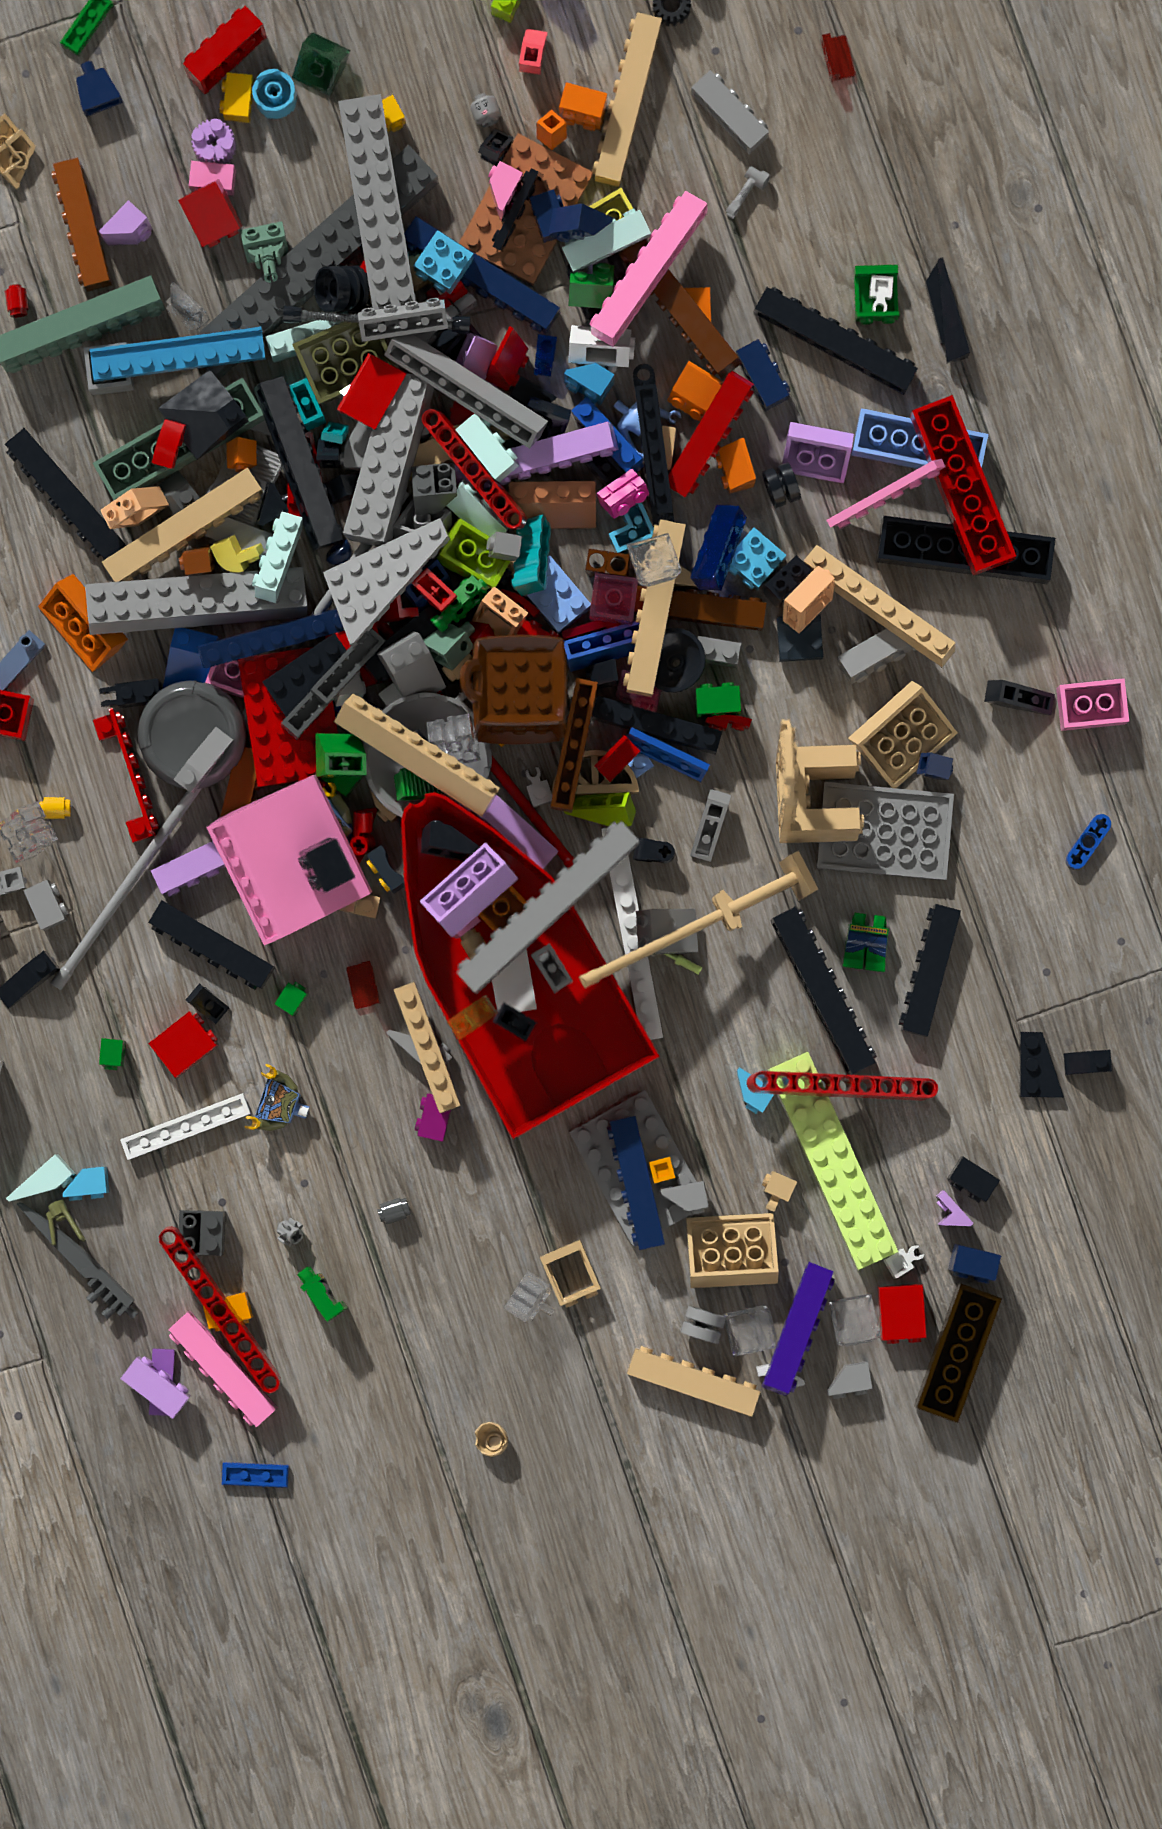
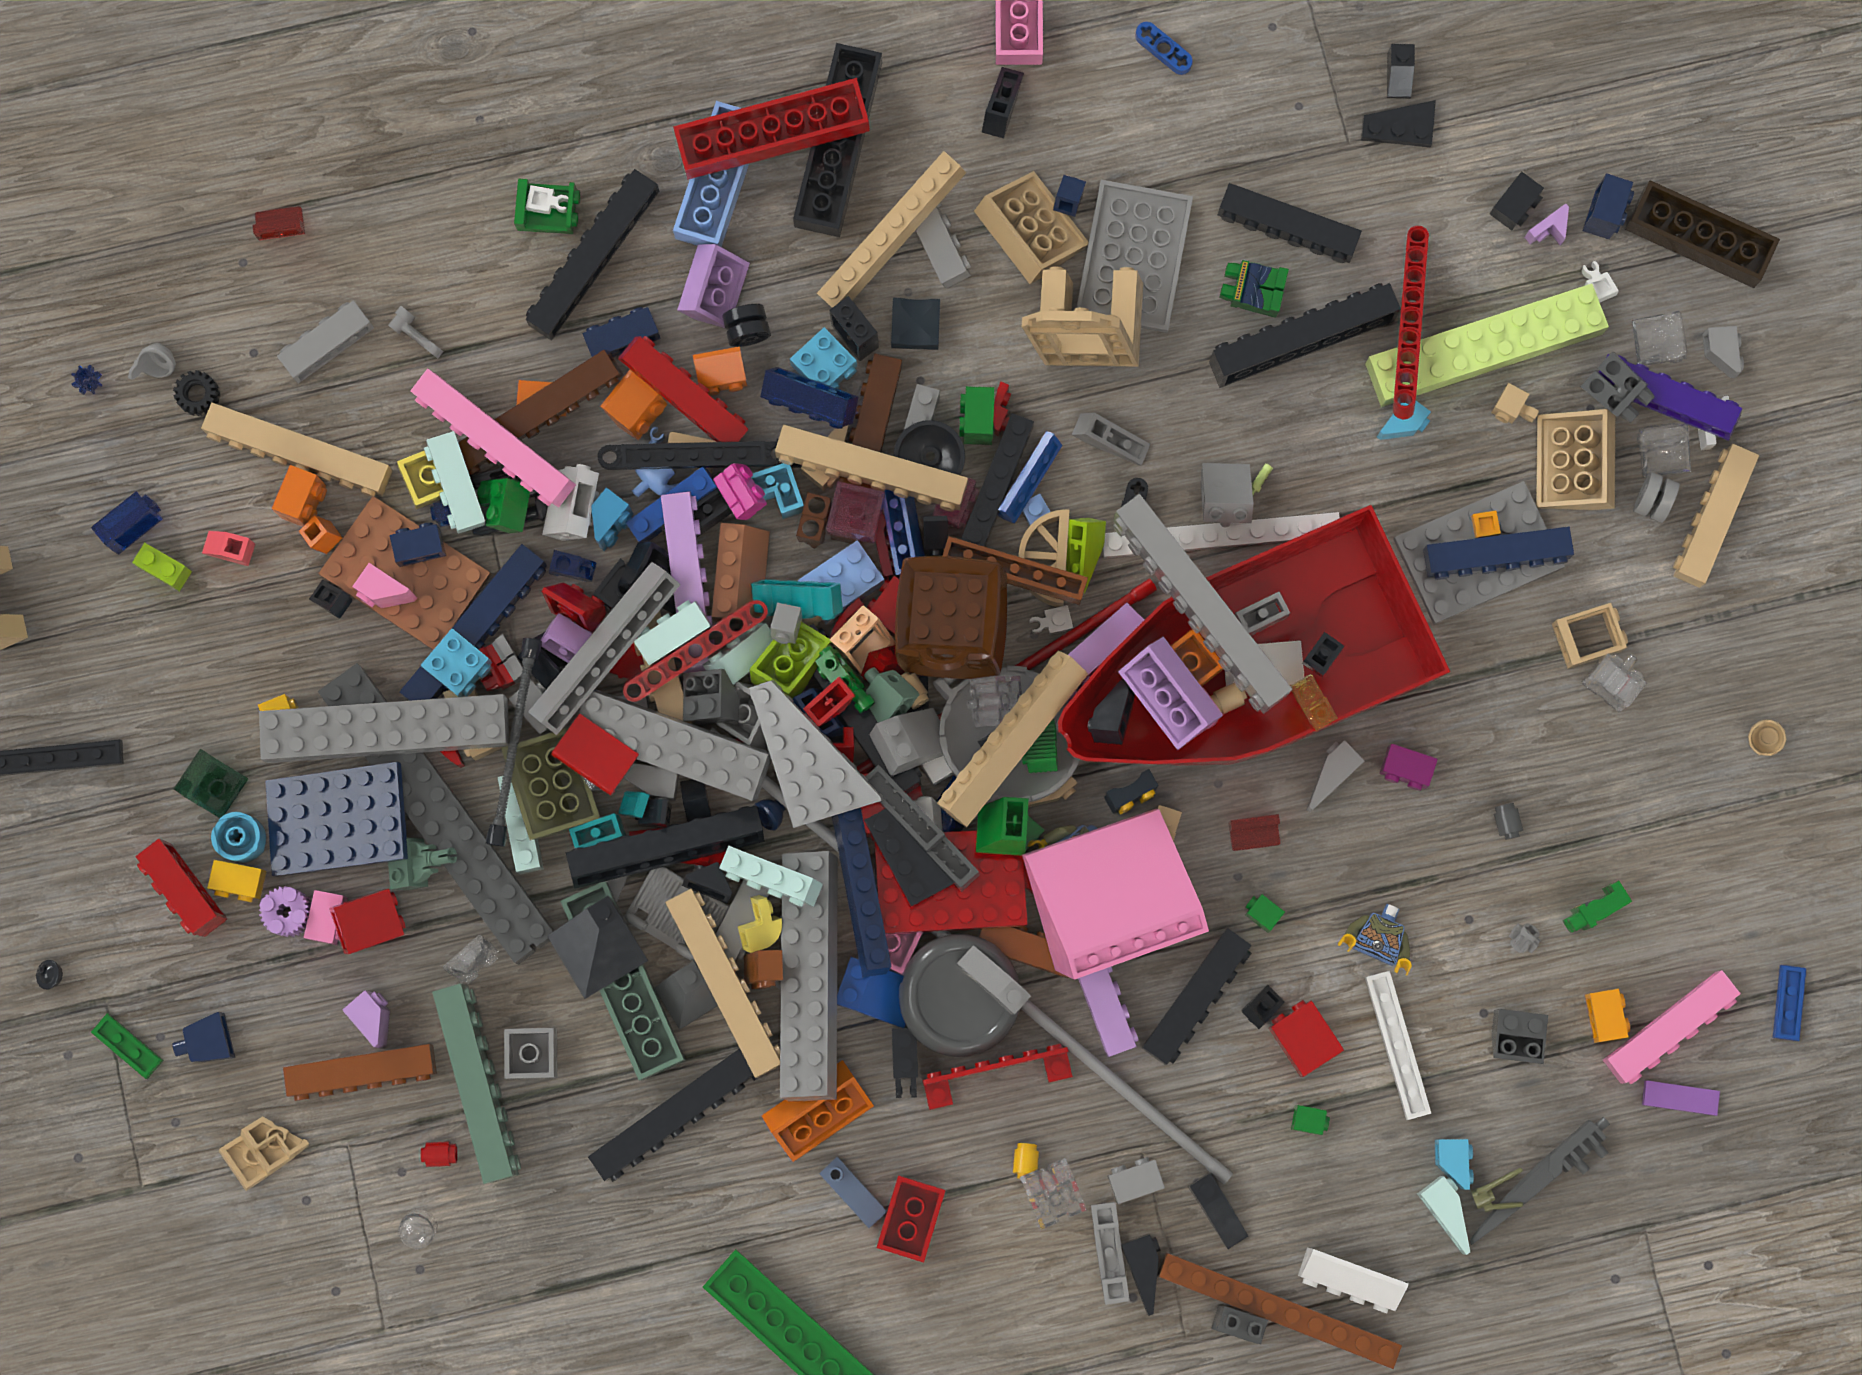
camera: 85 degrees left, 5 degrees down
(135, 507) = (695, 1036): light nougat window -> none
(156, 1386) = (1688, 1102): lavender brick -> none
(168, 443) = (627, 989): red slope -> none
(177, 354) = (525, 971): dark azure plate -> none
(221, 1320) = (1621, 1019): red beam -> none
(241, 454) = (647, 910): orange brick -> none
(297, 175) = (336, 819): none -> plate
(325, 865) = (1129, 849): black piece -> none
(341, 288) = (472, 779): black wheel -> none
(362, 827) = (1084, 814): red panel -> none
(402, 320) = (520, 708): light grey brick -> none
(427, 1047) = (1335, 763): tan brick -> none
(485, 110) = (288, 606): light grey head -> none
(527, 190) = (398, 573): black wing -> none
(577, 222) = (433, 508): dark blue slope -> none
(617, 758) = (1031, 527): red panel -> none
(654, 560) = (821, 459): clear slope -> none
(688, 1196) = (1516, 498): light grey slope -> none
(796, 876) = (1179, 350): tan piece -> none
(800, 1279) = (1626, 389): none -> dark grey hips
(808, 599) = (877, 304): light nougat window -> none
(892, 491) = (769, 201): bright pink plate -> none
(901, 1313) = (1654, 288): red brick -> none
(946, 314) = (577, 134): black wedge -> none

